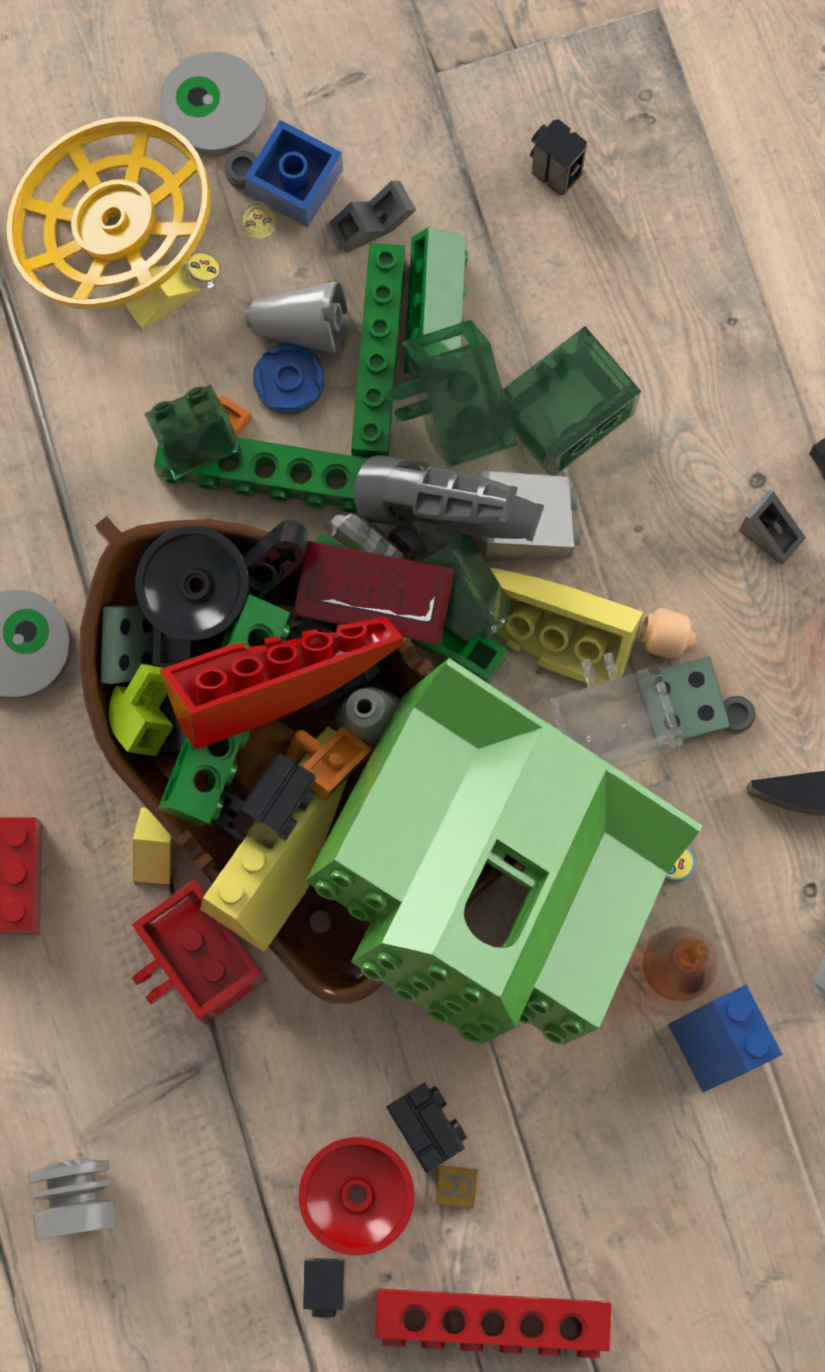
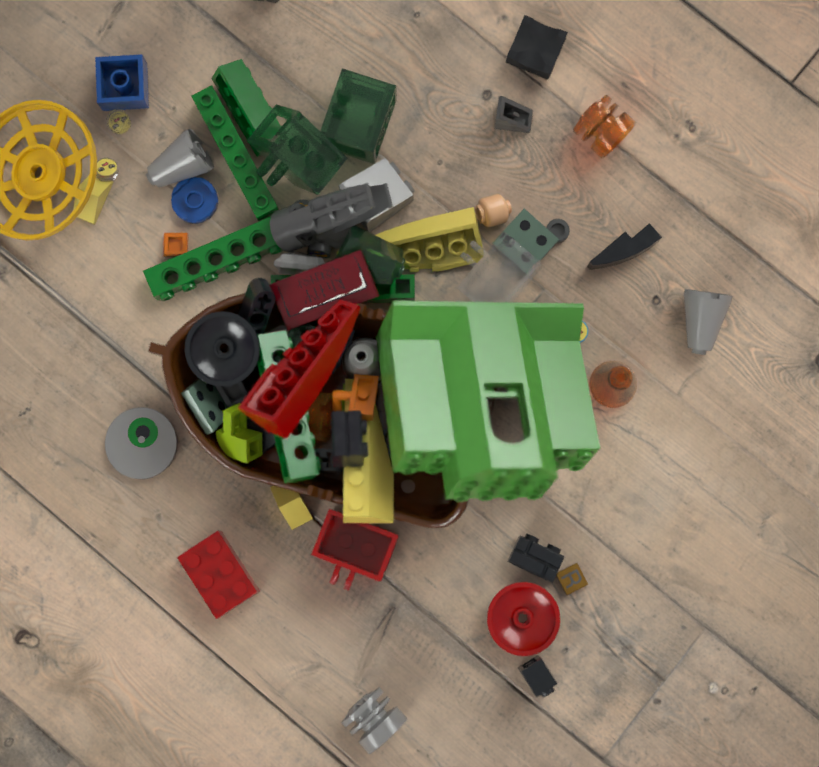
camera: 30 degrees left, 5 degrees up
(192, 431) = (163, 263): clear green slope -> none
(214, 102) = (49, 69): light grey tile -> none
(237, 167) = (88, 98): dark grey tile -> none
(372, 219) = (182, 81): dark grey slope -> none
(592, 1315) = (694, 613): red brick -> none
(725, 1038) = (664, 408): blue slope -> none

